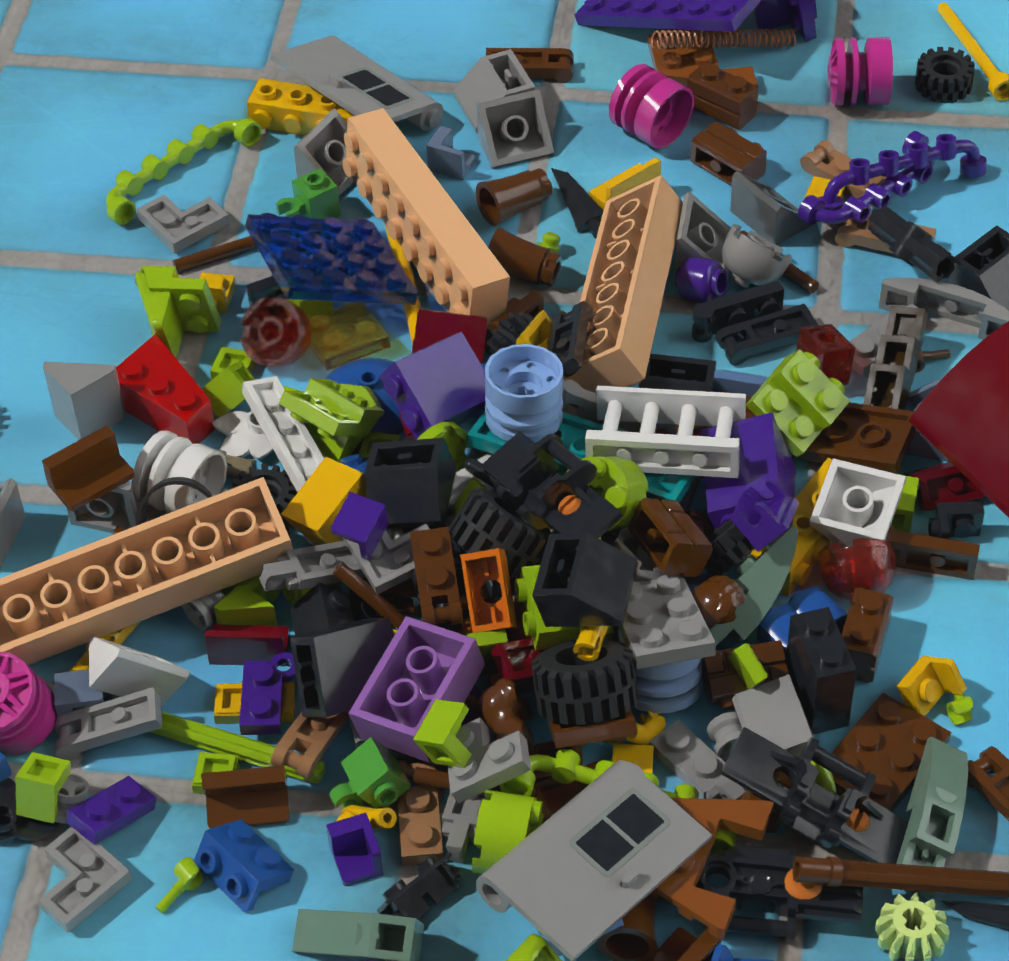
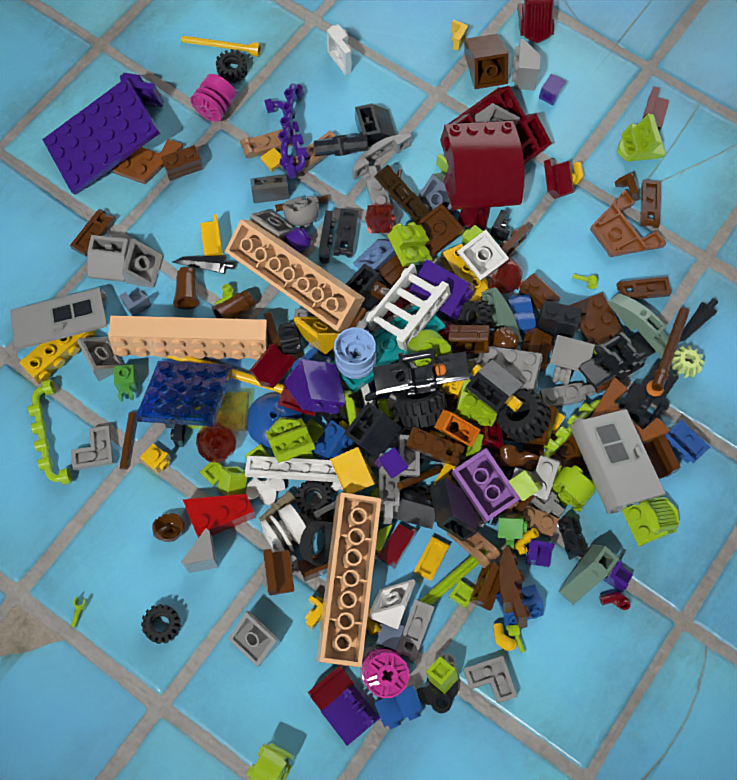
camera: 65 degrees left, 20 degrees up
(105, 346) = (168, 527): none -> reddish brown hair
(111, 810) = (463, 649): dark purple plate -> none
(163, 862) = (501, 639): none -> yellow arm
(176, 304) = (161, 484): lime piece -> none
(257, 809) = (511, 587): none -> reddish brown slope
(264, 694) = (435, 552): dark purple hinge -> none
(569, 336) = (324, 316): black plate -> none
(651, 106) = (173, 196): dark pink wheel -> none
(718, 40) = (136, 159): nougat piece -> none
(724, 152) = (223, 183): reddish brown brick -> none
(748, 666) = (545, 347): lime tile -> none
(764, 519) = (483, 294): dark purple hinge -> none
(928, 682) = (576, 285): yellow bracket -> none

